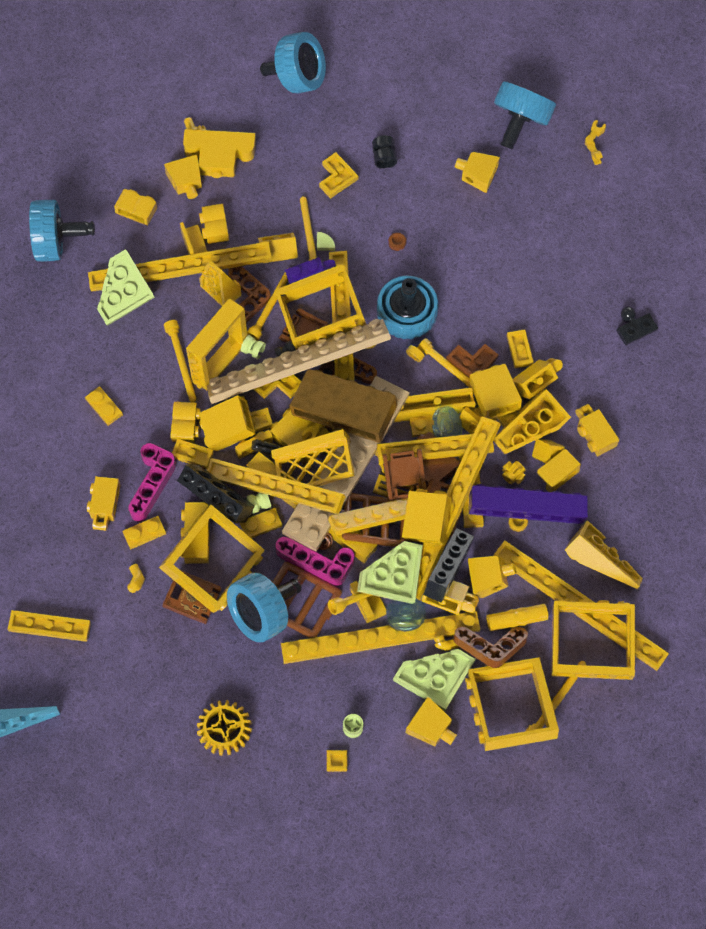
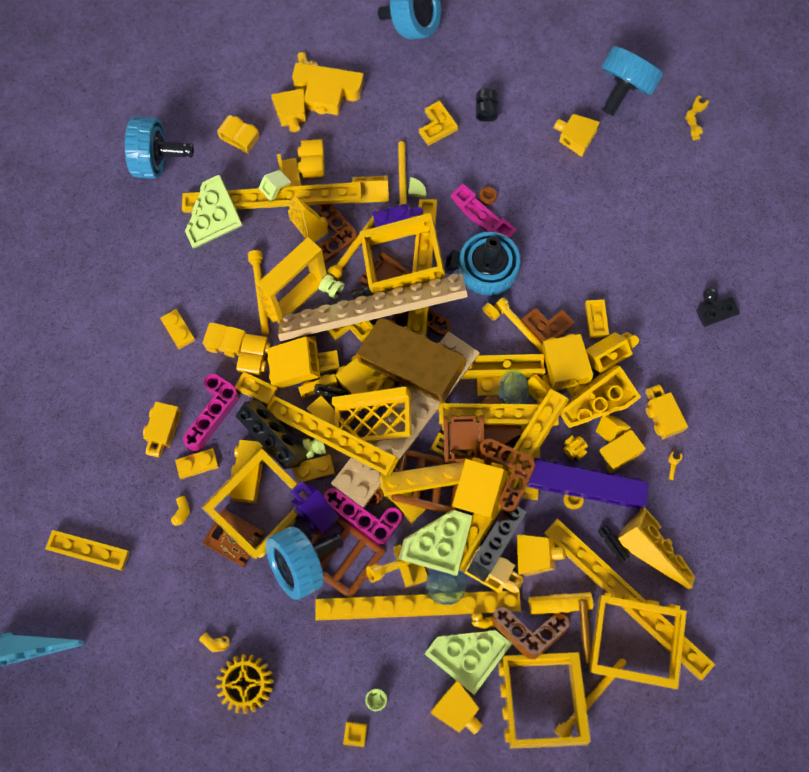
camera: 10 degrees right, 5 degrees up
(153, 410) = (223, 339): none -> yellow brick
(180, 253) = (272, 183): none -> yellowish green panel
(190, 697) = (215, 645): none -> yellow arm
(267, 555) = (313, 507): none -> dark purple brick
(370, 310) = (452, 262): none -> black plate
(389, 259) = (479, 214): none -> dark pink slope
(460, 497) = (517, 472): none -> dark orange beam
(543, 638) = (584, 625): none -> pearl gold bar
(561, 558) = (613, 543): none -> black axle
(610, 475) = (673, 462): none -> yellow hand

